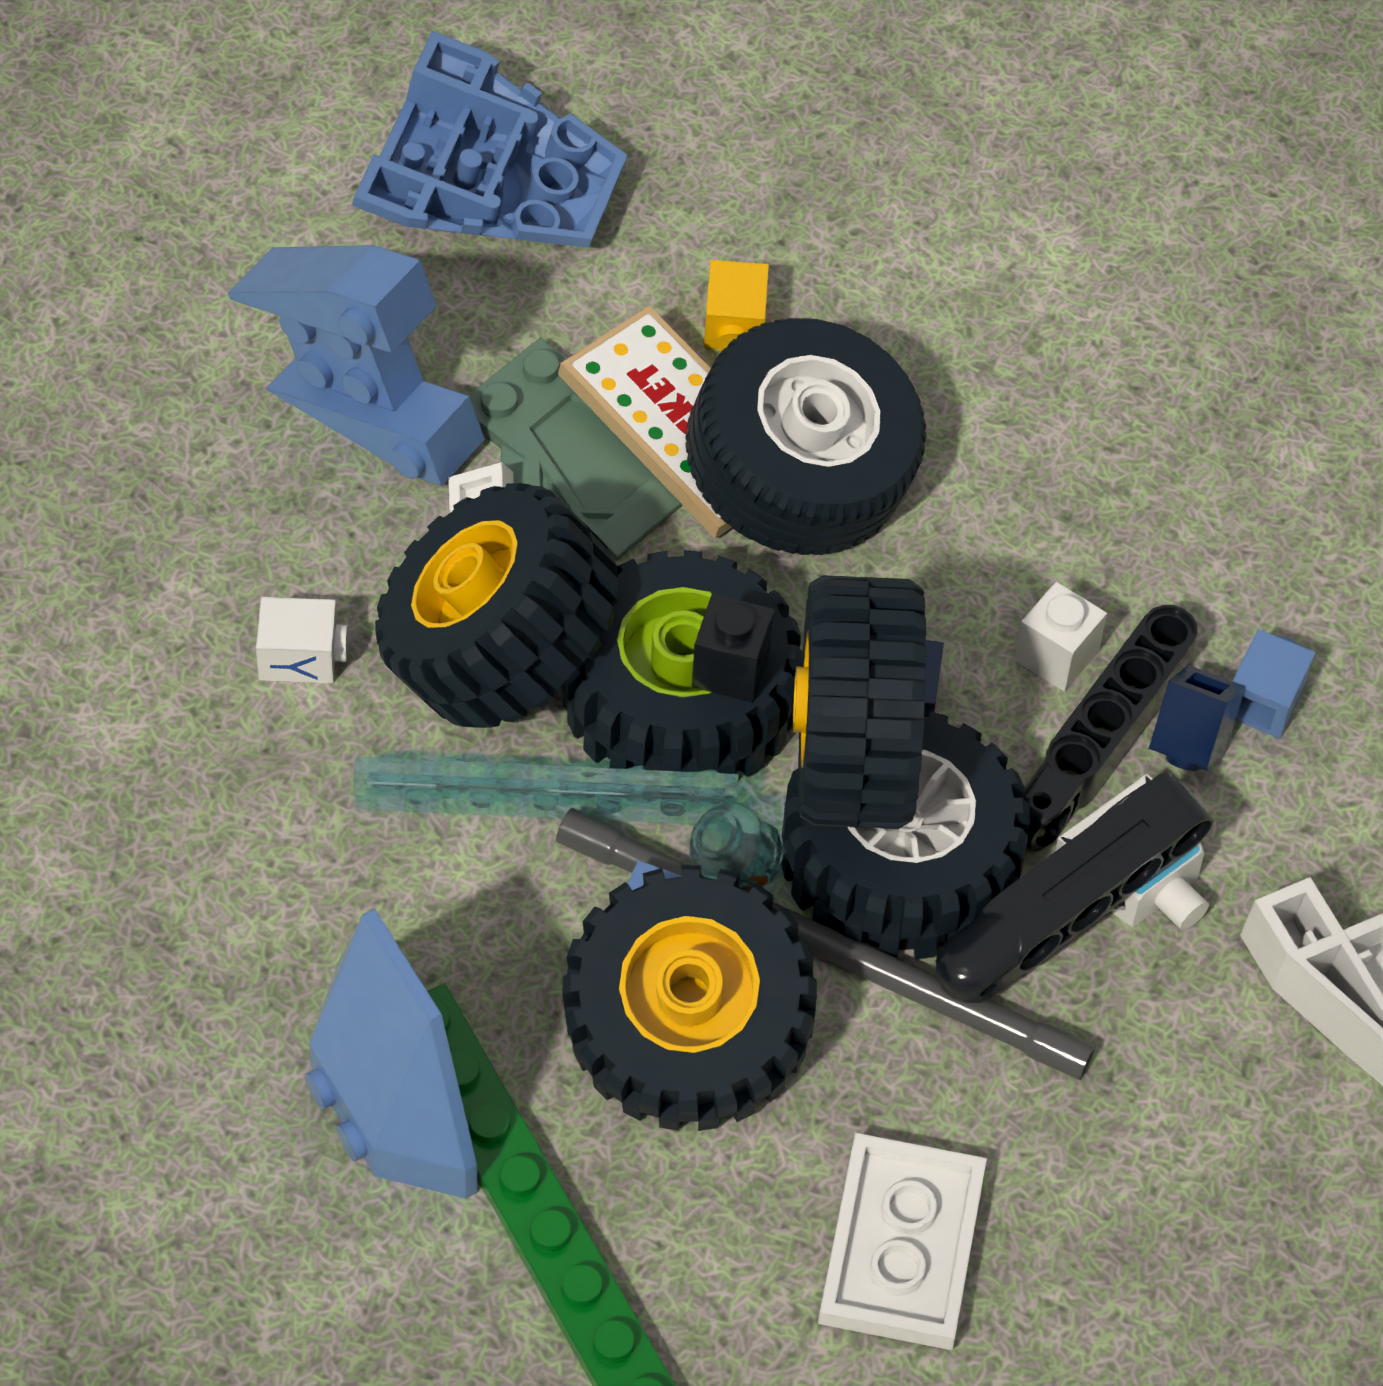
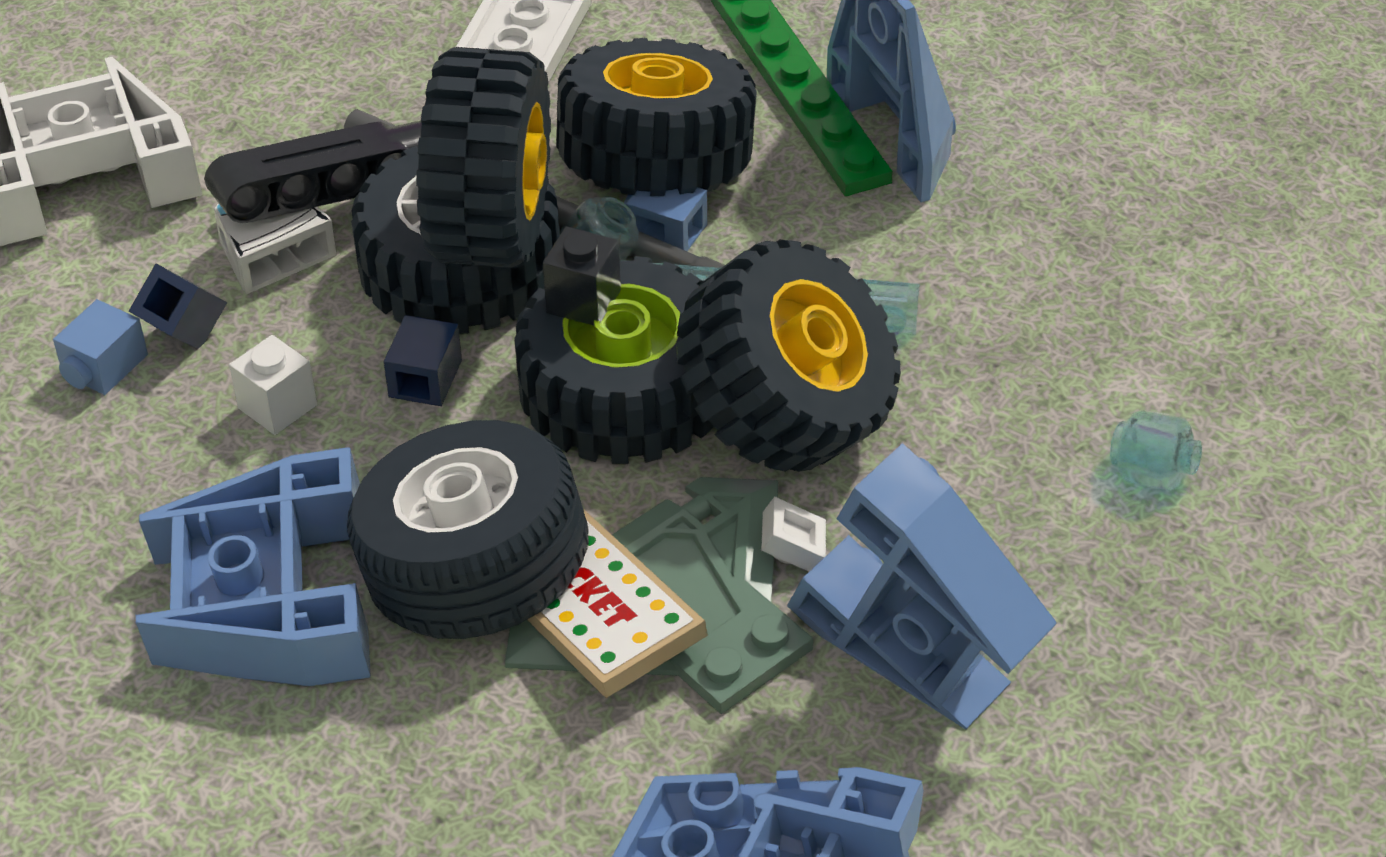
camera: 170 degrees left, 10 degrees down
(100, 614) = (1155, 450): none -> clear light blue head
(299, 640) = (969, 420): white brick -> none
(734, 300) = (506, 713): yellow brick -> none
(1022, 411) = (240, 576): none -> medium blue wedge
(1113, 706) = (278, 303): black piece -> none

